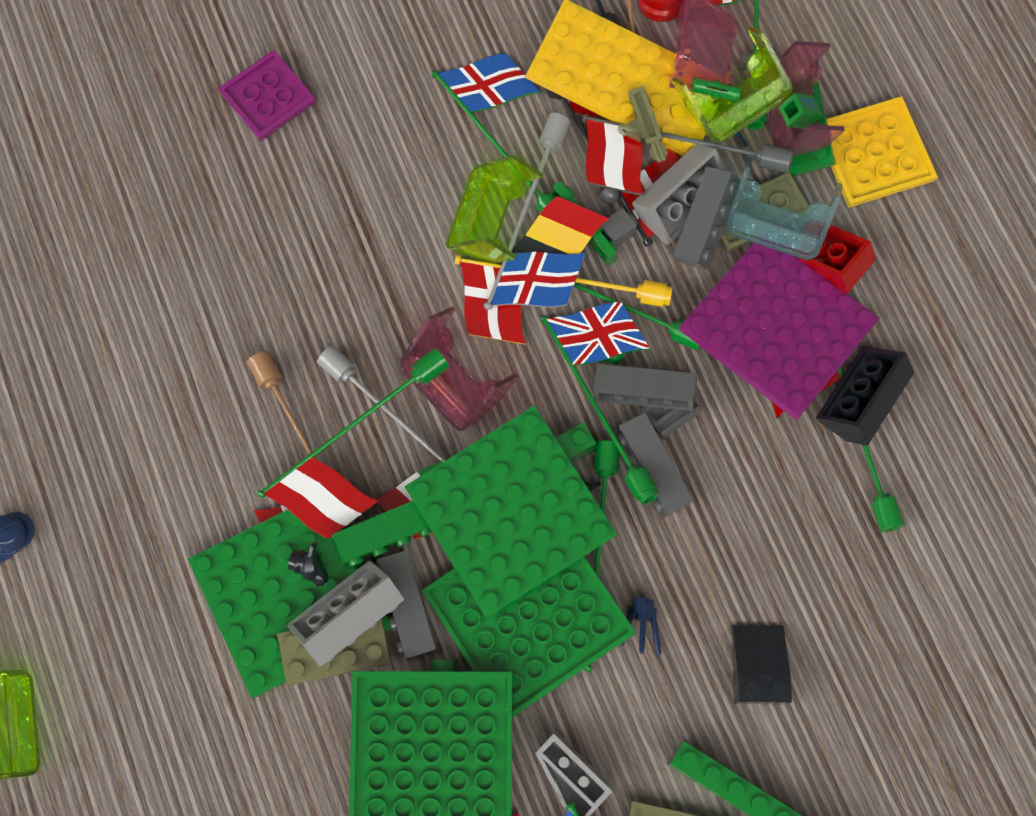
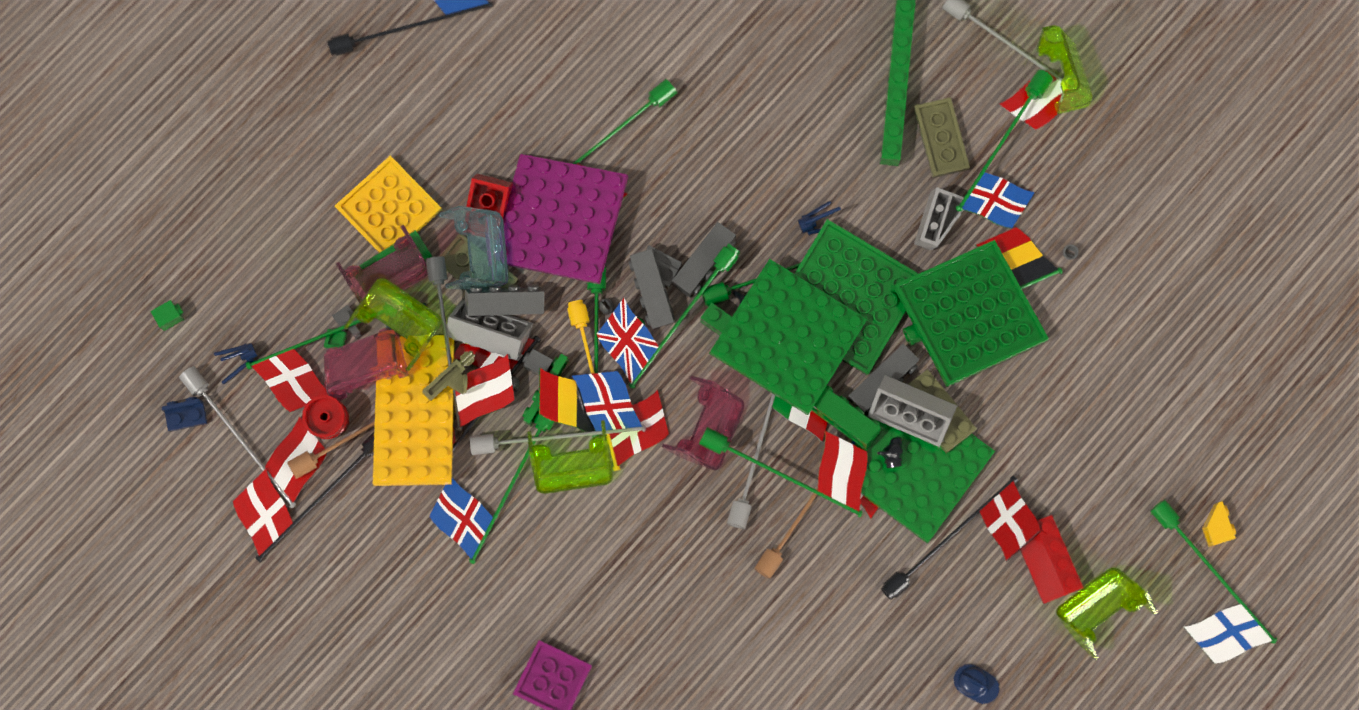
camera: 115 degrees left, 5 degrees up
(90, 693) = (1050, 563): none -> red slope
(161, 665) = (1007, 521): none -> flag
(652, 337) = (603, 309): none -> dark grey hinge
(731, 92) = (401, 336): green pin -> none
(743, 41) = (335, 340): none -> green tile
(760, 665) = (805, 133): black slope -> none
(800, 111) = (392, 267): green brick -> none
(866, 394) = (584, 139): black slope -> none

